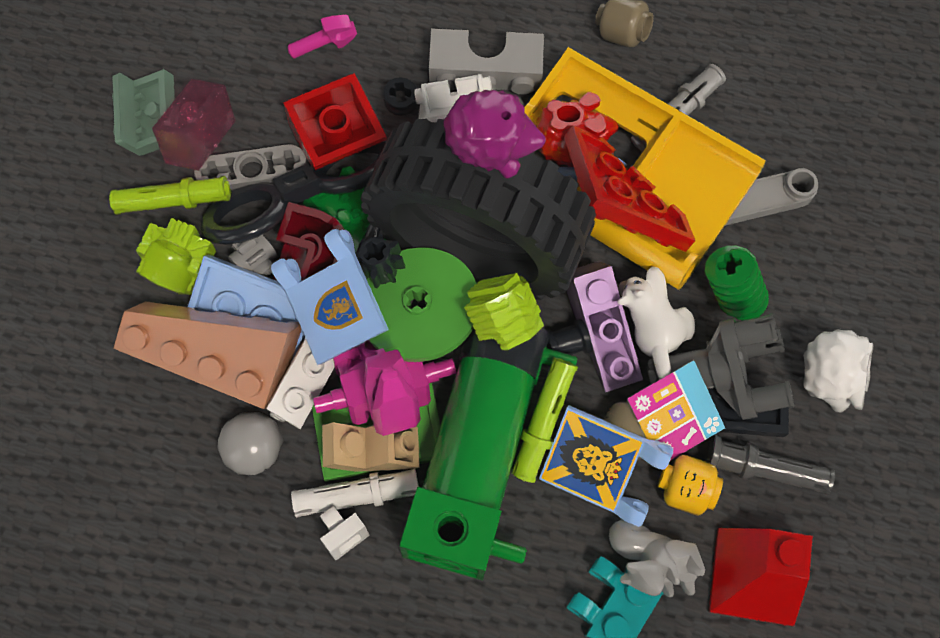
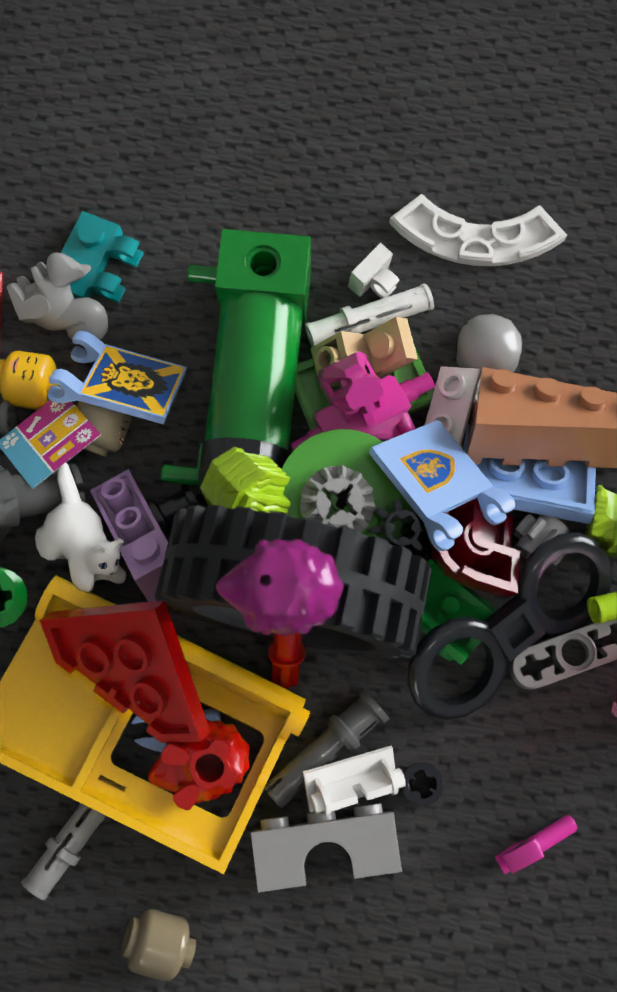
camera: 175 degrees right, 5 degrees up
(230, 555) = (477, 244): none -> white tile
(333, 121) = (489, 711): red slope -> none
(425, 306) = (334, 480): none -> light grey gear
(538, 435) = (192, 397): lime pin -> none

